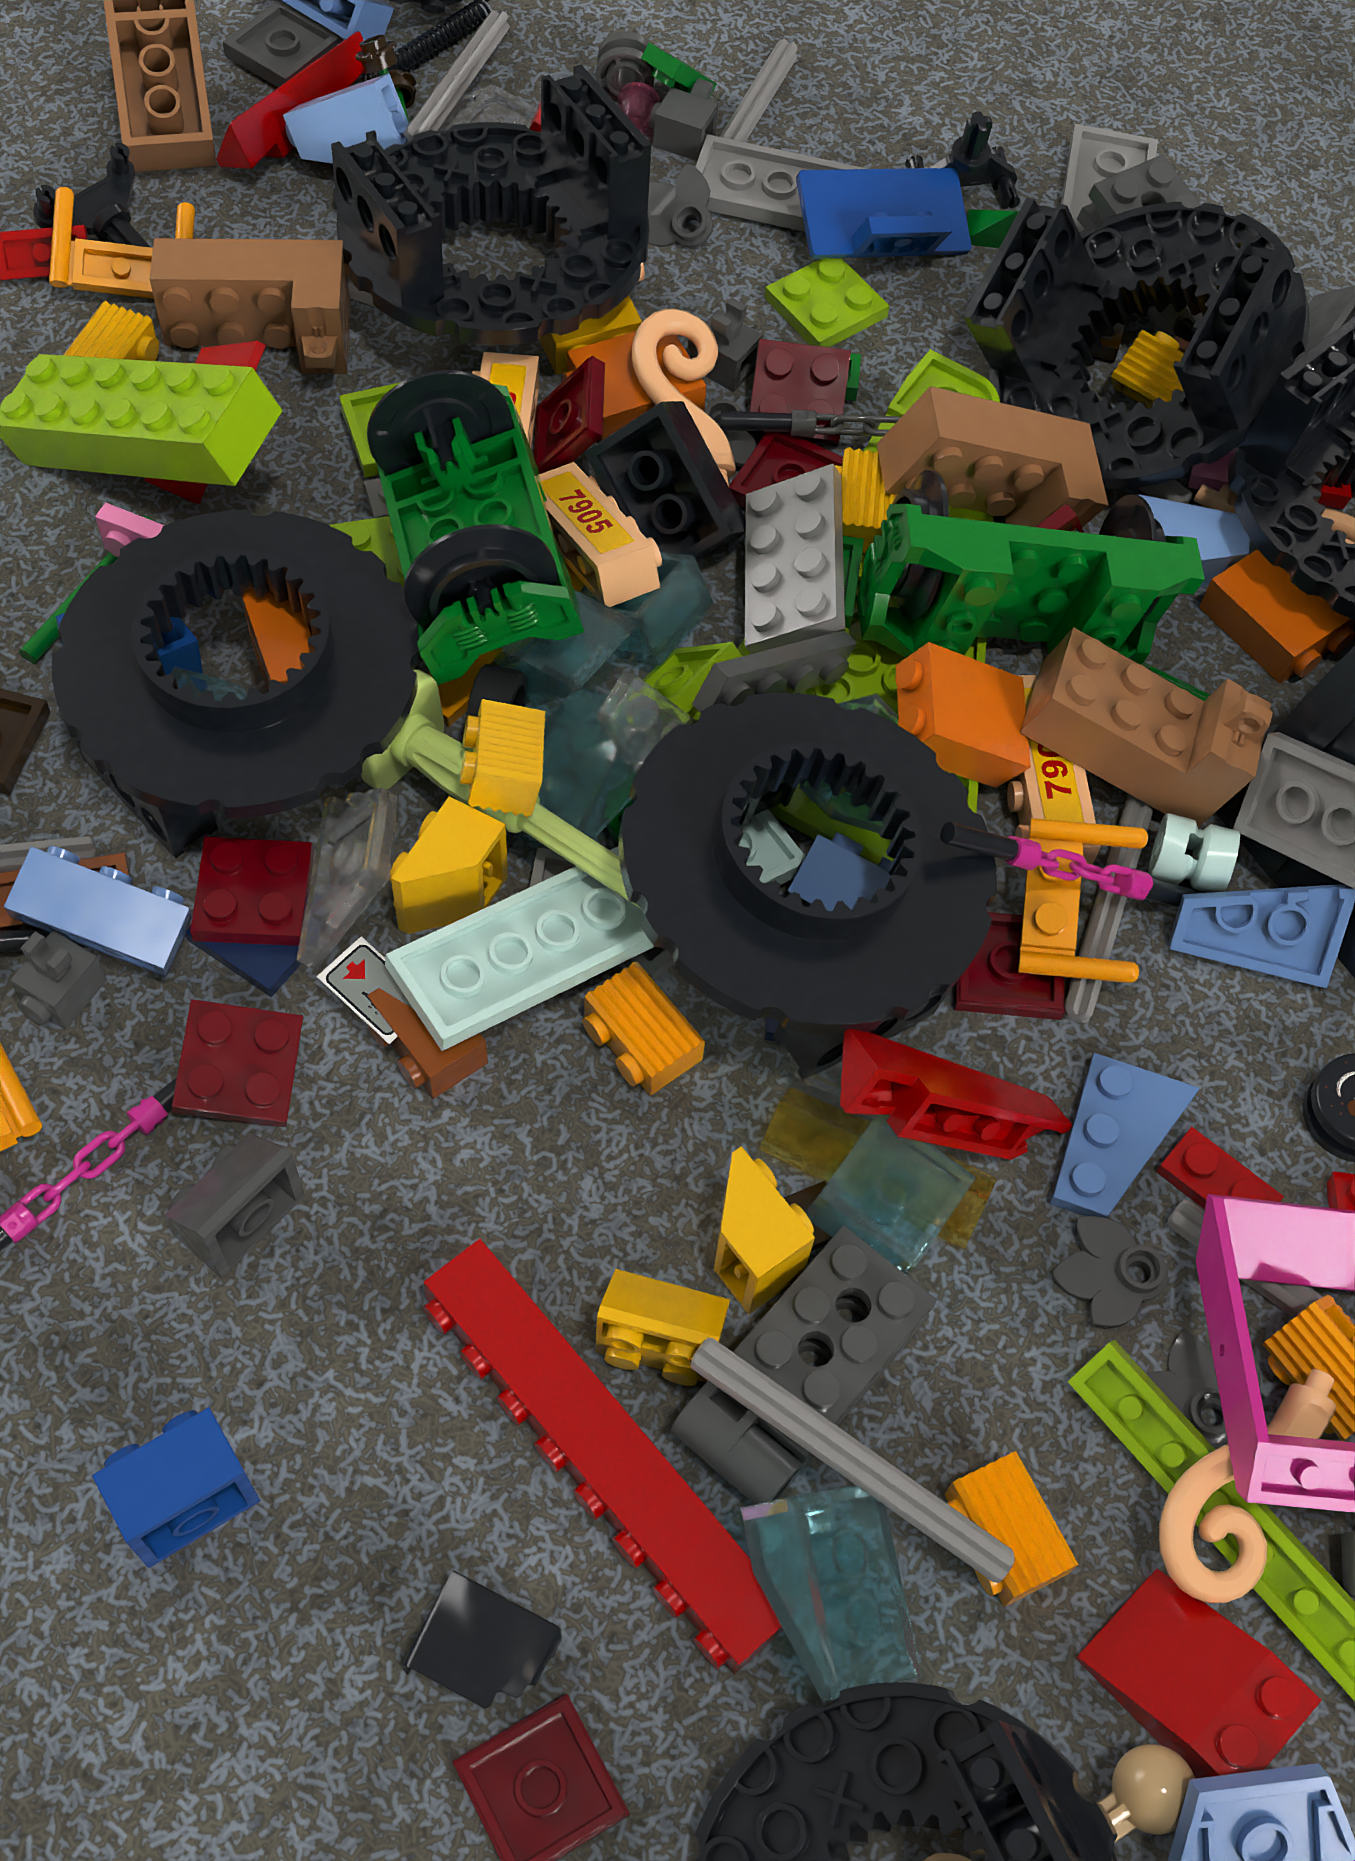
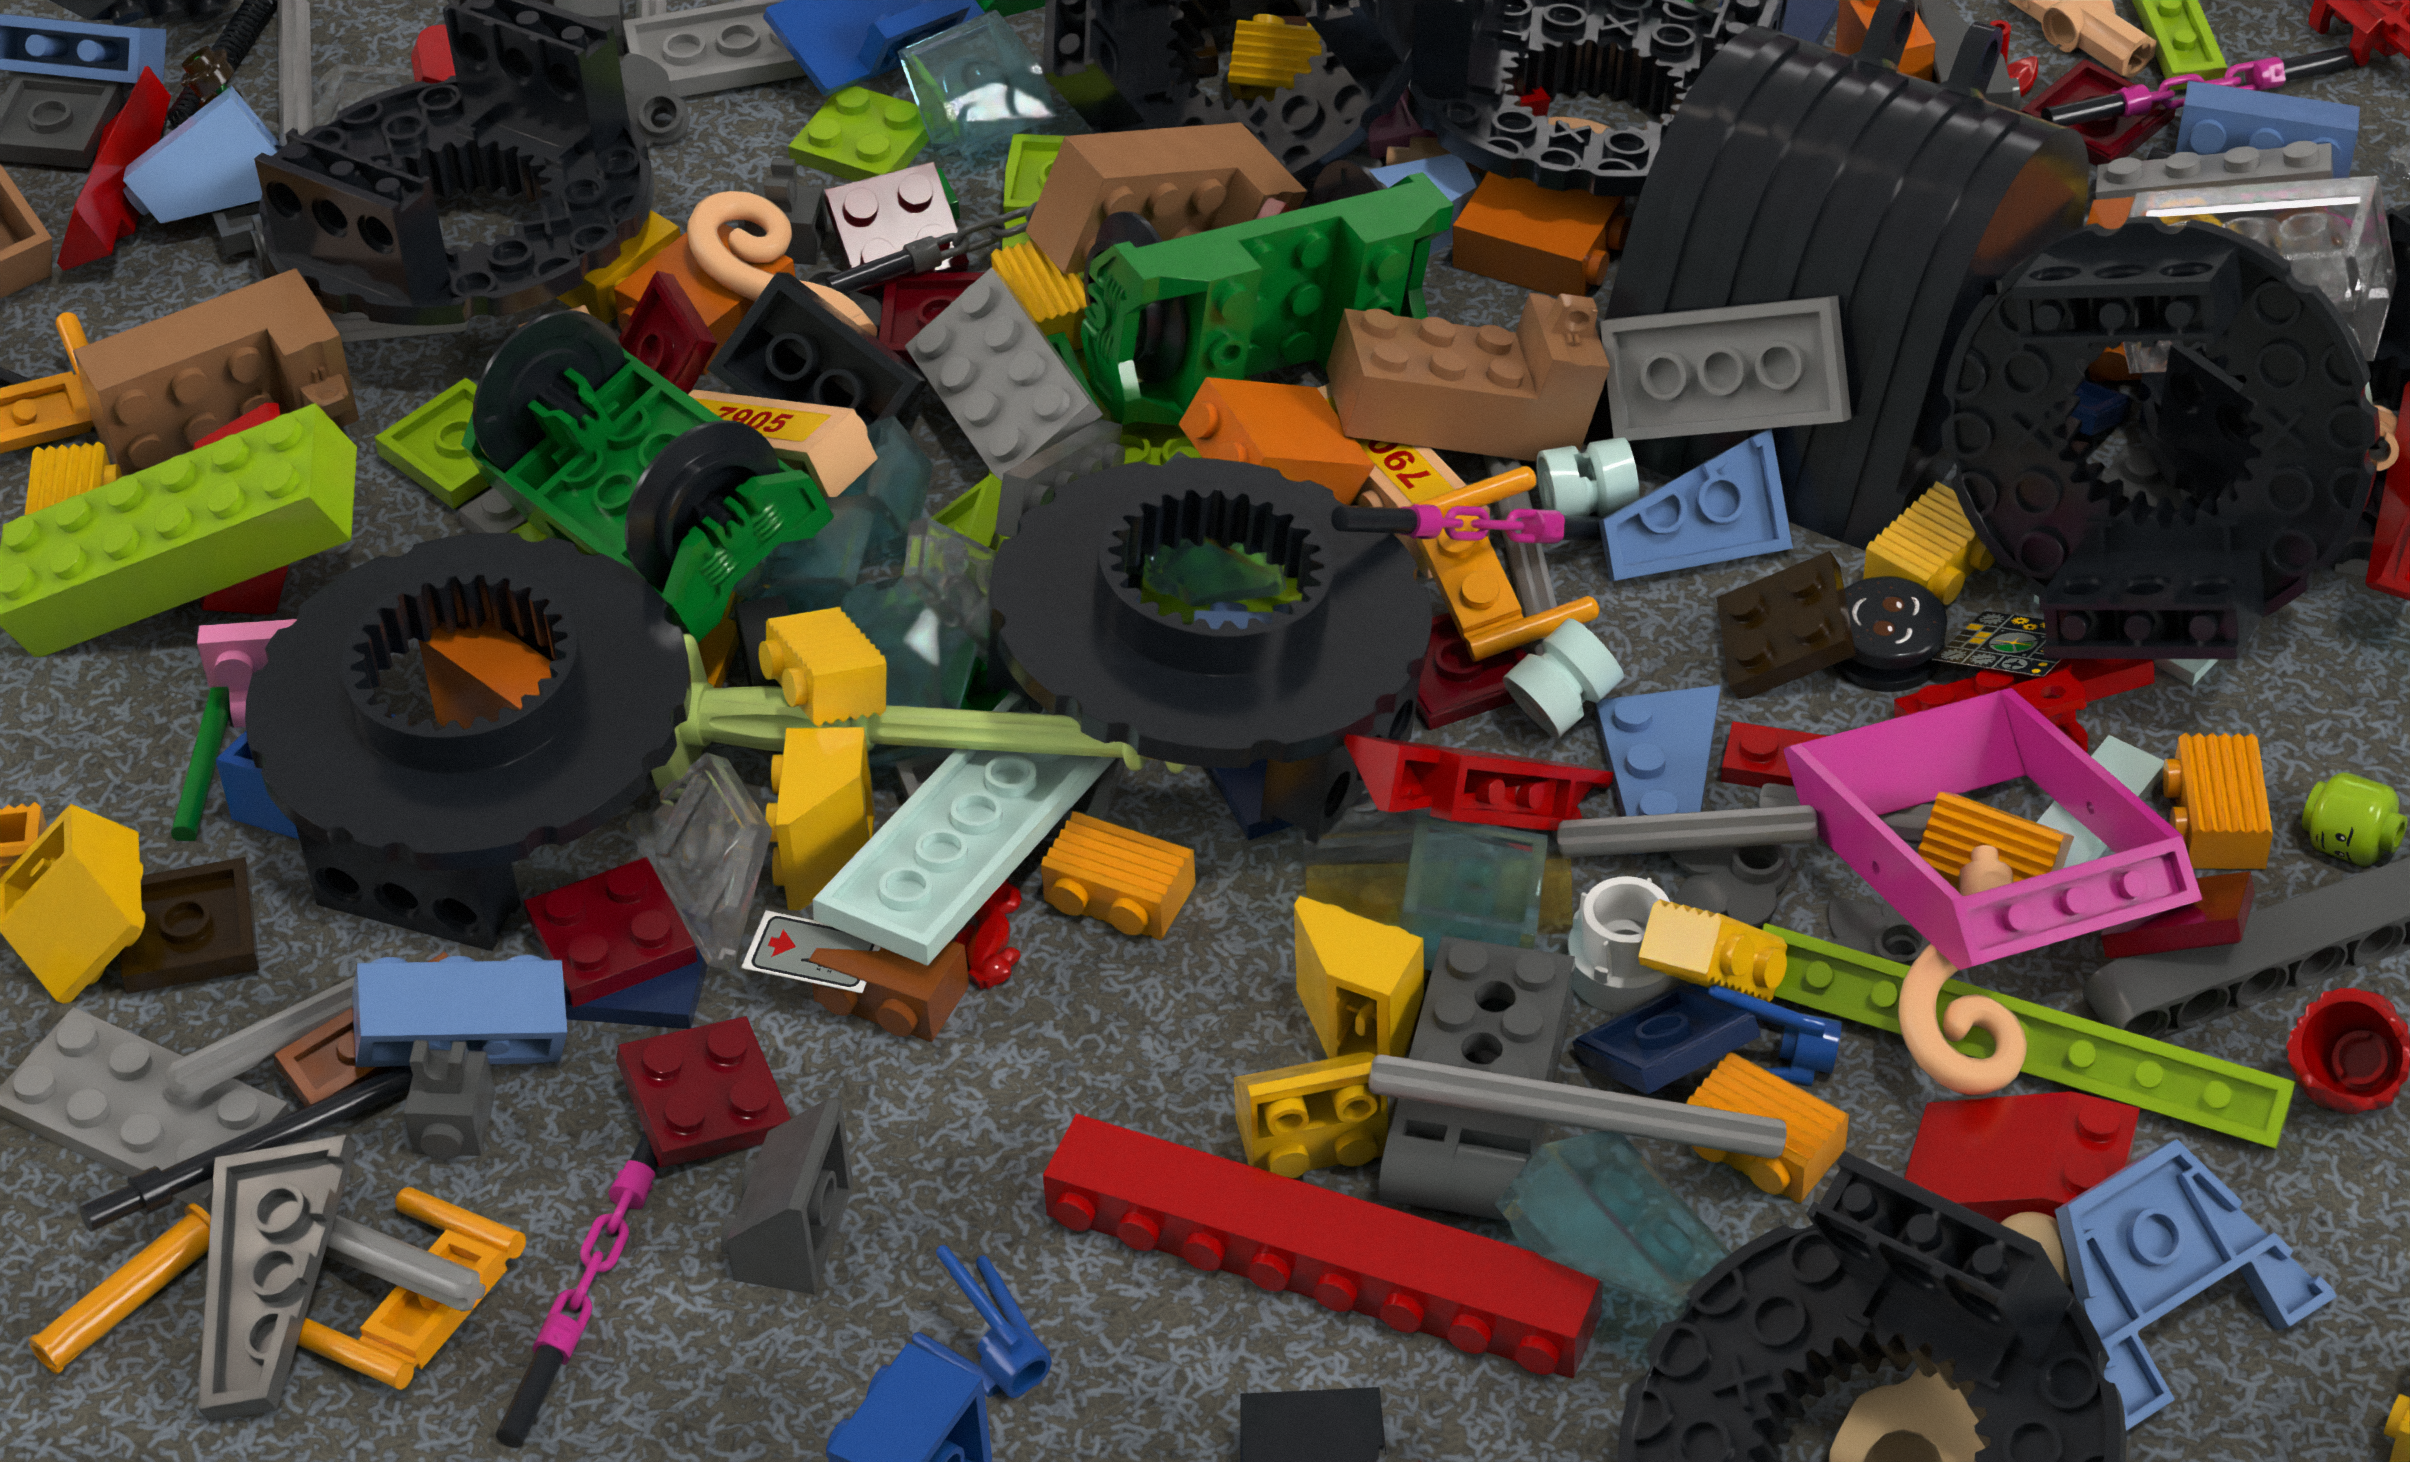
camera: 20 degrees left, 15 degrees down
(319, 1422) = (1009, 1351): none -> blue plant
(520, 1032) = (986, 942): none -> red animal
(920, 298) = (975, 85): none -> clear light blue slope
(973, 1325) = (1608, 942): none -> white piece
(974, 1406) = (1665, 1038): none -> dark blue tile
(1048, 1357) = (1713, 950): none -> yellow brick
(1075, 1027) = (1567, 674): none -> light aqua wheel
(1088, 1457) = (1805, 1039): none -> blue plant
(1098, 1219) = (1688, 831): none -> light grey axle
(1280, 1063) = (1785, 626): none -> dark brown plate

